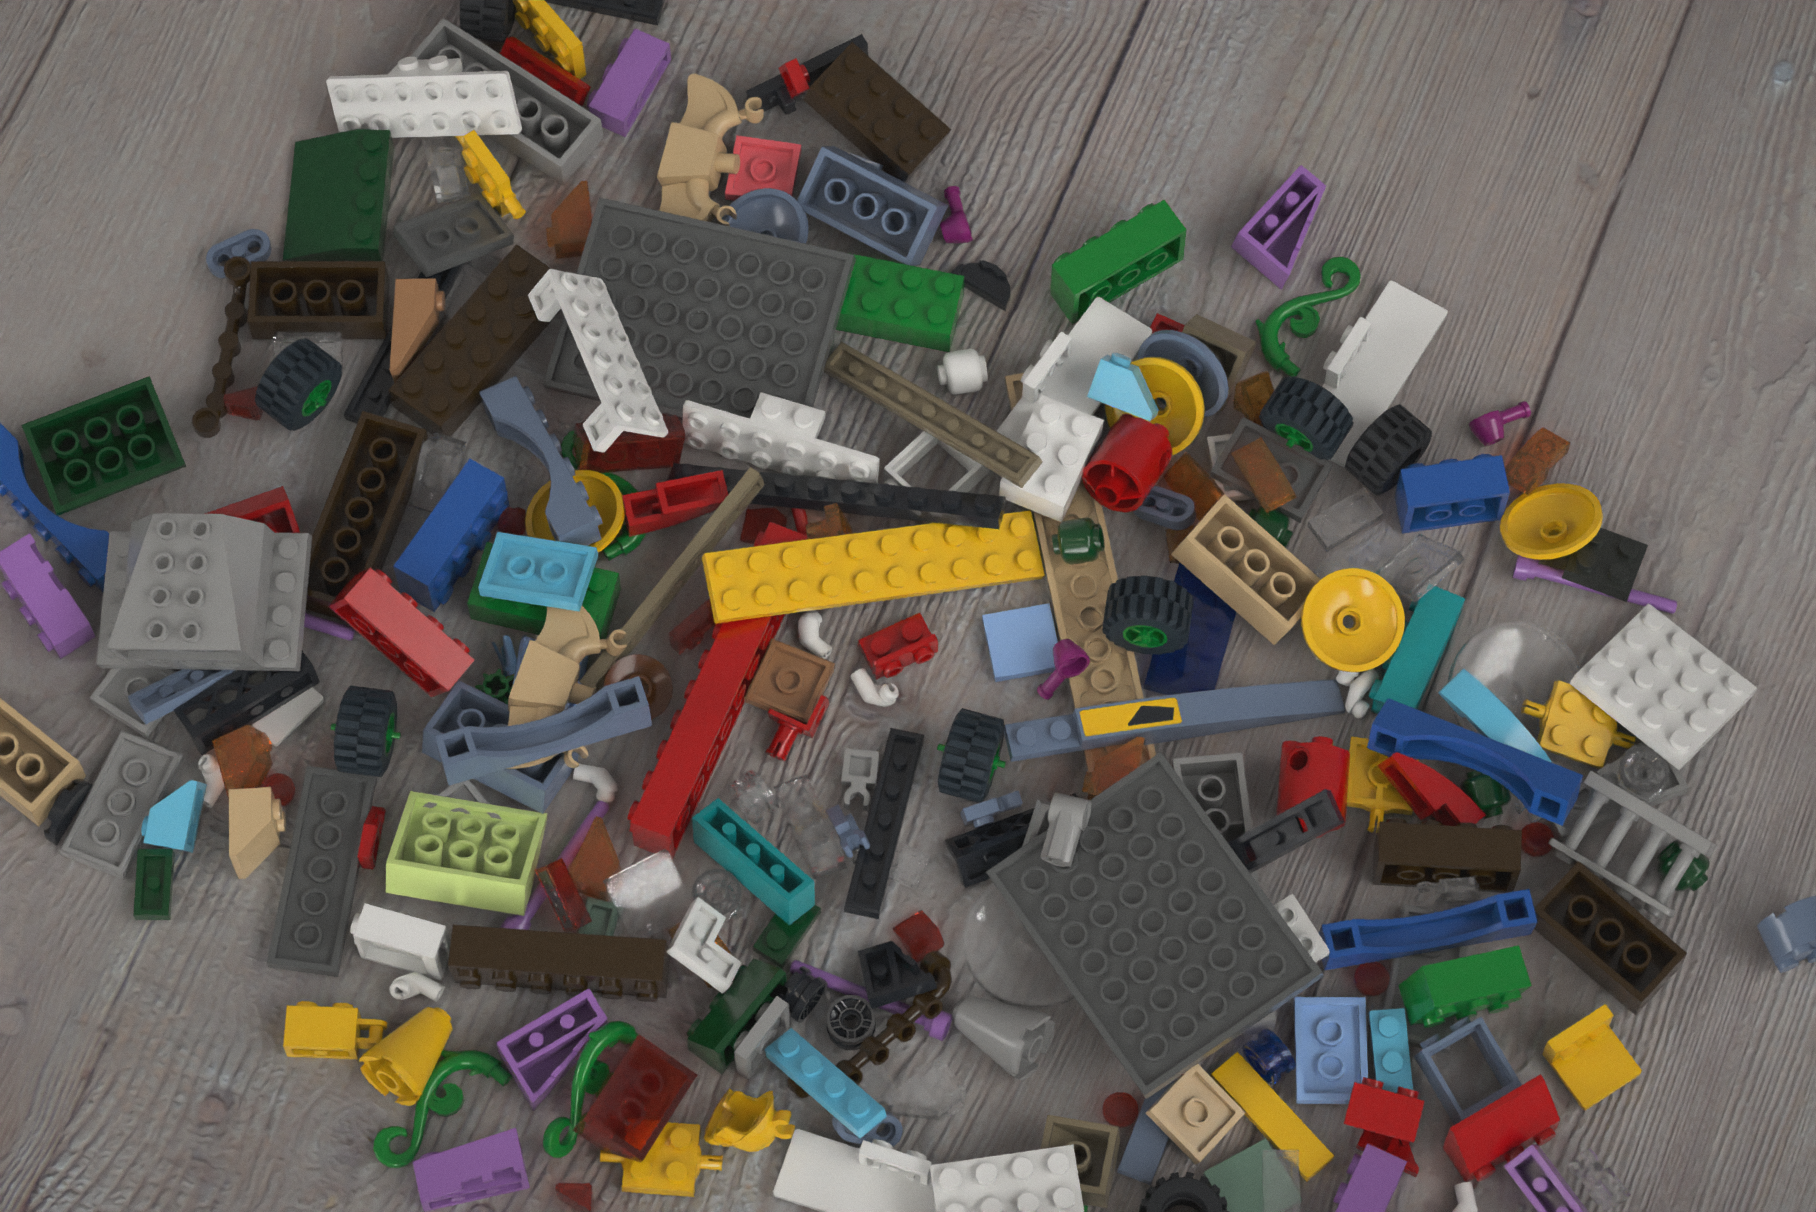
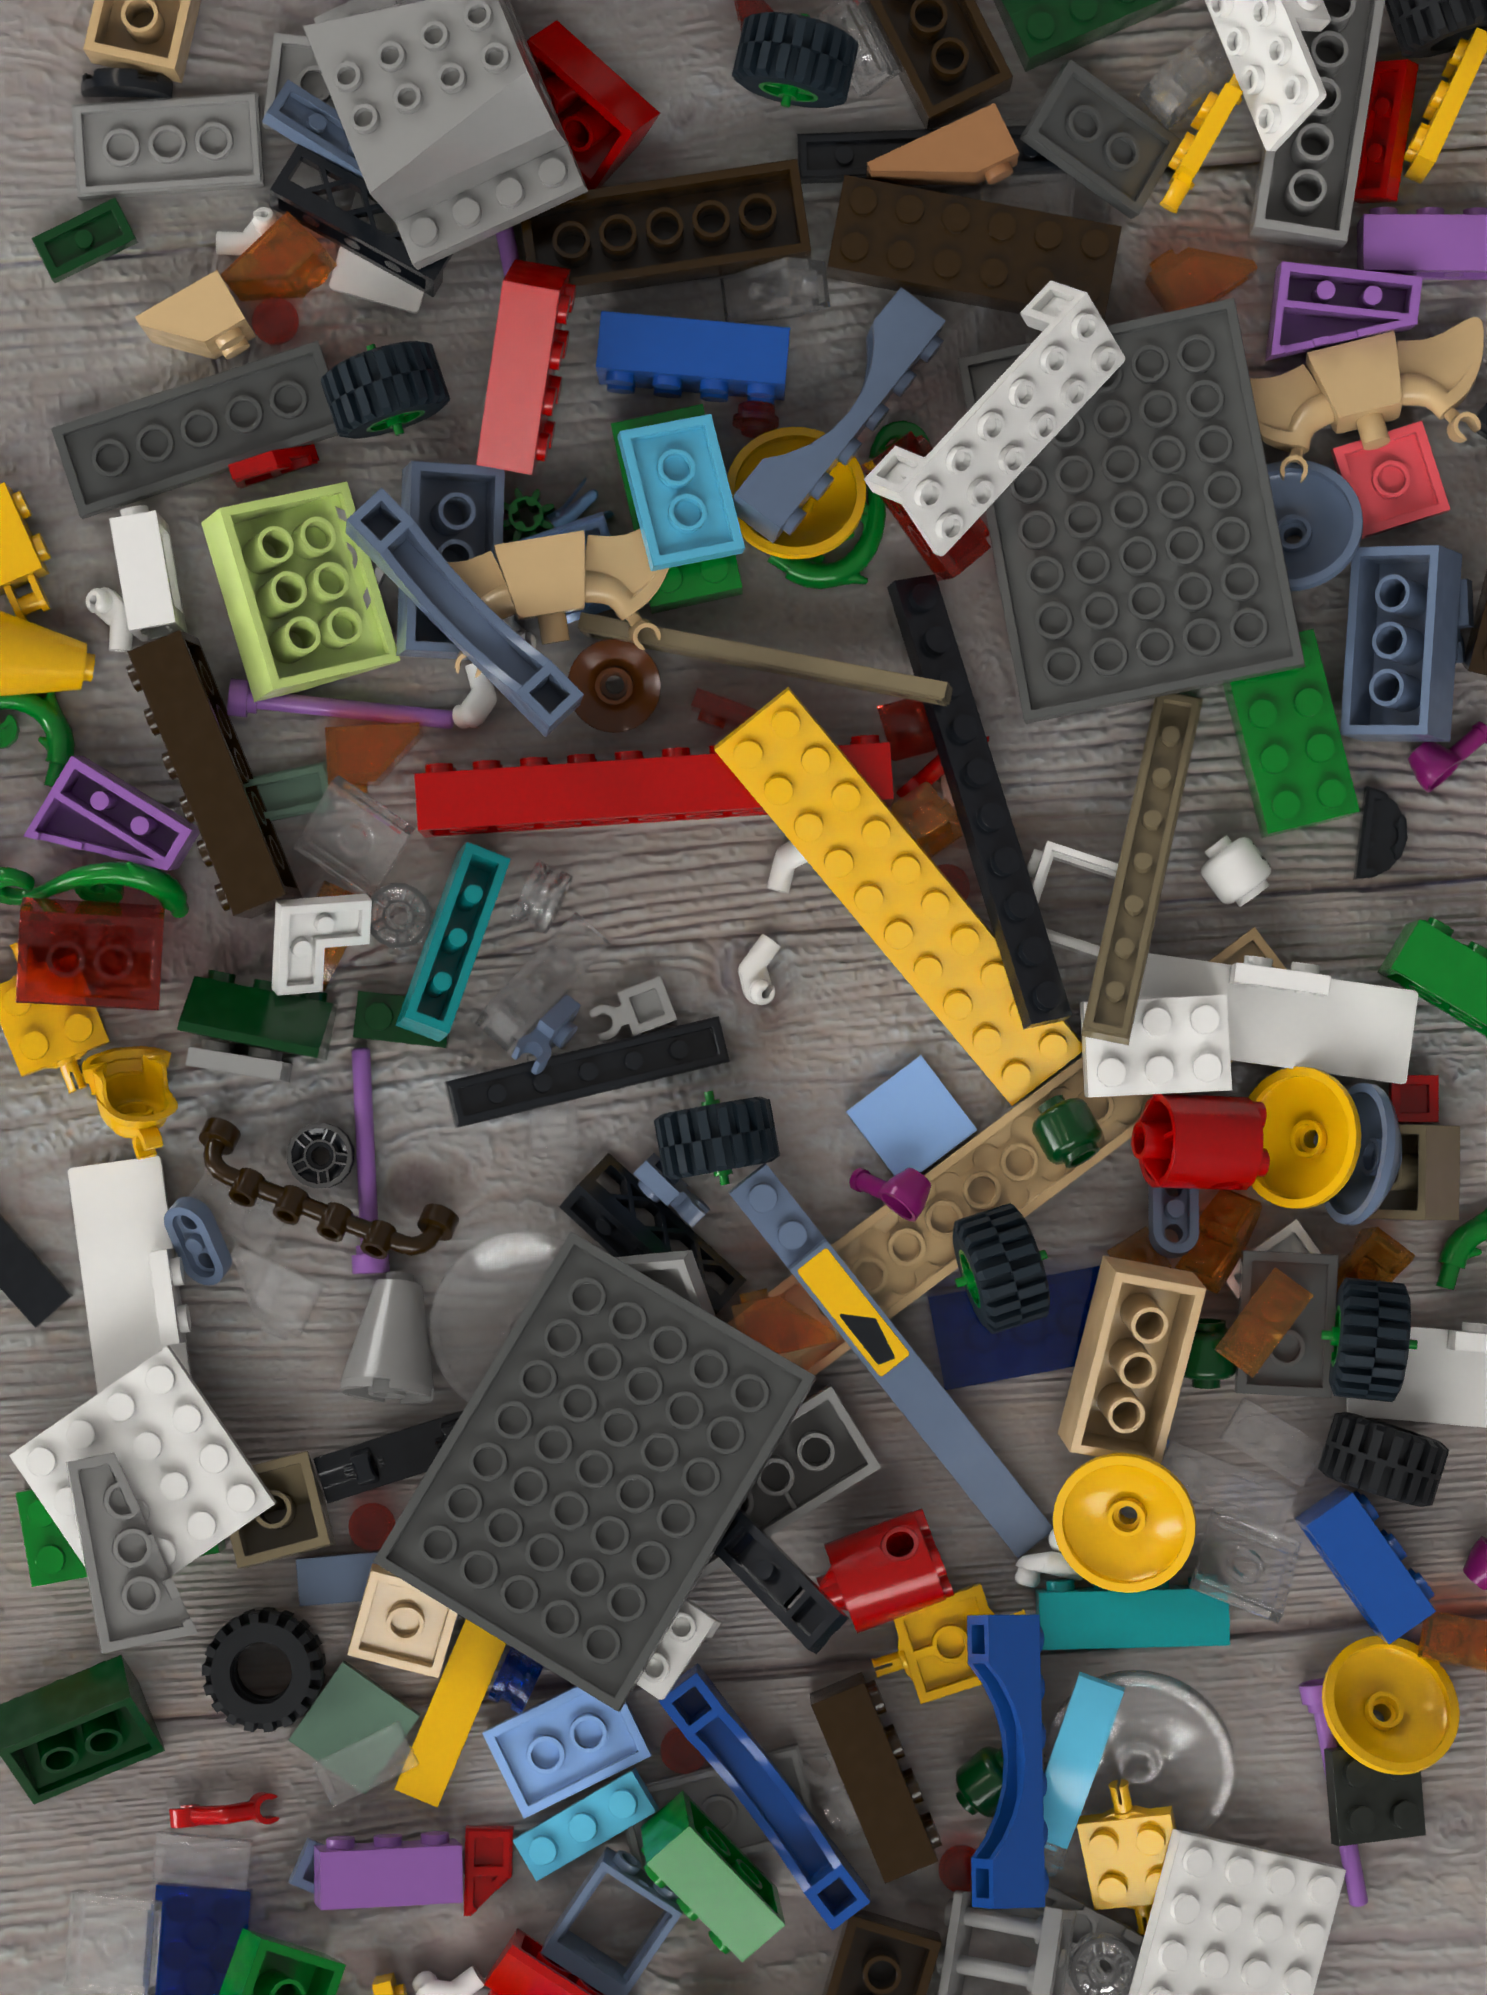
camera: 65 degrees right, 20 degrees up
(176, 818) = (168, 224): medium azure slope -> none
(563, 895) = (302, 737): clear red slope -> none
(635, 149) = (1336, 305): none -> medium lavender wedge
(674, 502) = (871, 607): red slope -> none
(776, 437) = (1027, 694): white bracket -> none
(789, 681) = (716, 864): medium nougat plate -> none
(790, 728) = (654, 896): red bracket -> none
(803, 993) = (321, 1081): black wheel -> none
(825, 1083) = (216, 1169): medium azure plate -> none
(892, 975) = (396, 1176): black wing -> none
(898, 646) = (830, 972): red bracket -> none
(919, 935) = (473, 1180): clear red slope -> none
(1067, 819) = (671, 1304): light grey piece -> none
(1079, 1068) = (395, 1455): none -> black hinge
(1123, 387) = (1294, 1091): medium azure slope -> none
(1383, 1110) = (510, 1848): red brick -> none
(1429, 791) = (945, 1724): red slope -> none

